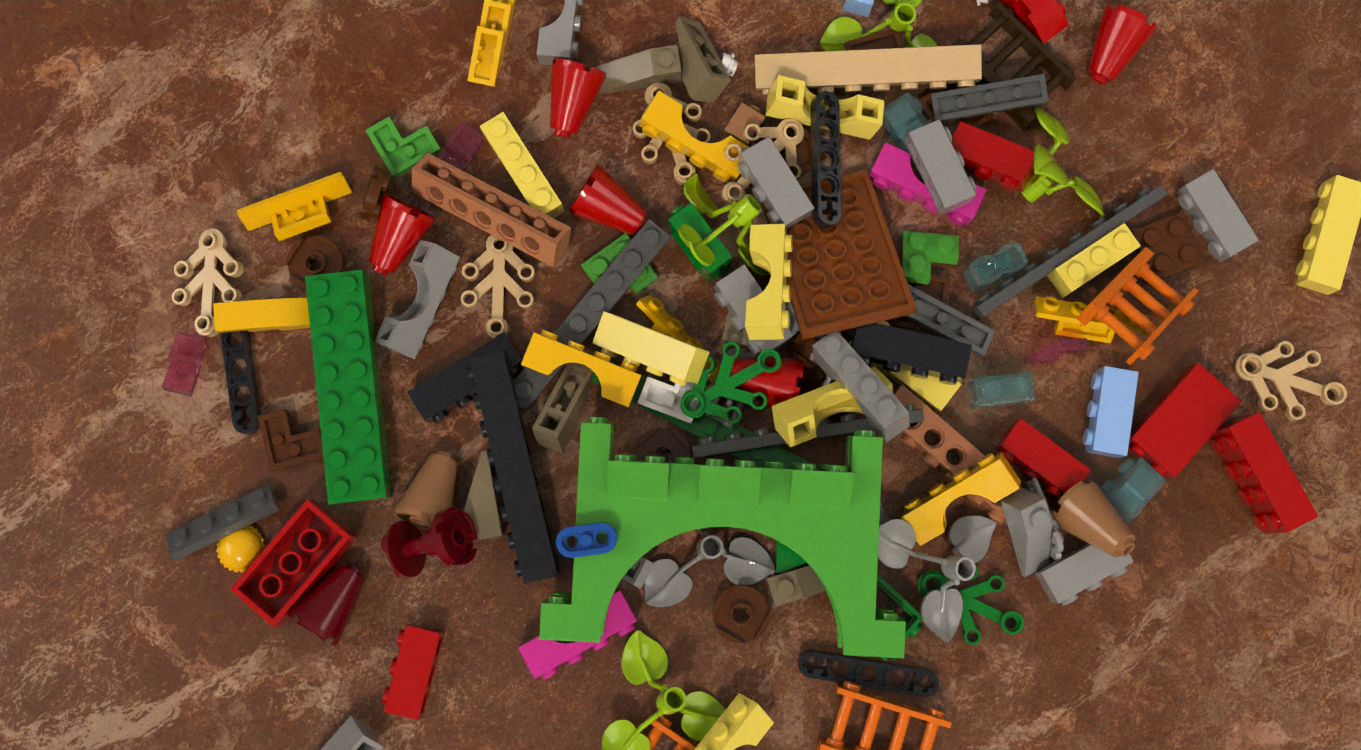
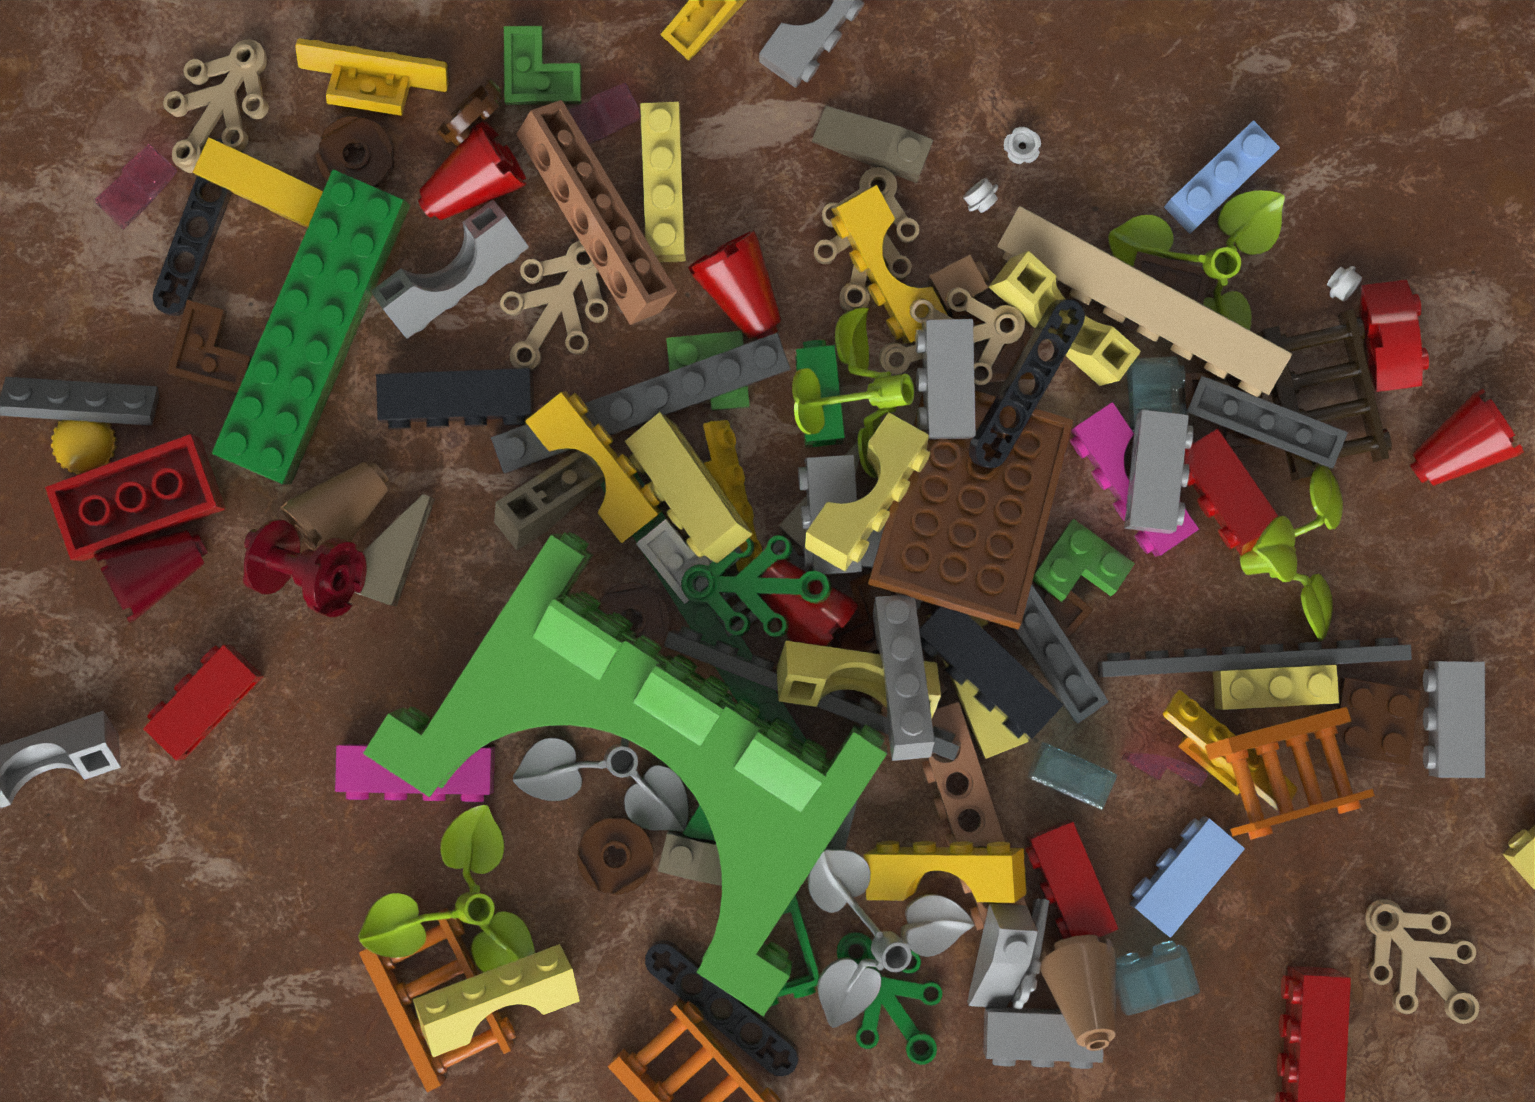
camera: 30 degrees right, 5 degrees up
(513, 465) = (450, 532): black brick -> none
(572, 95) = (773, 127): red cone -> none
(587, 540) = (481, 674): blue plate -> none
(638, 572) = (525, 741): light grey plate -> none
(700, 64) = (949, 178): dark tan slope -> none
(733, 14) = (1026, 136): none -> white plate
(1000, 266) = (1143, 625): clear light blue brick -> none
(1182, 421) = (1262, 935): red brick -> none

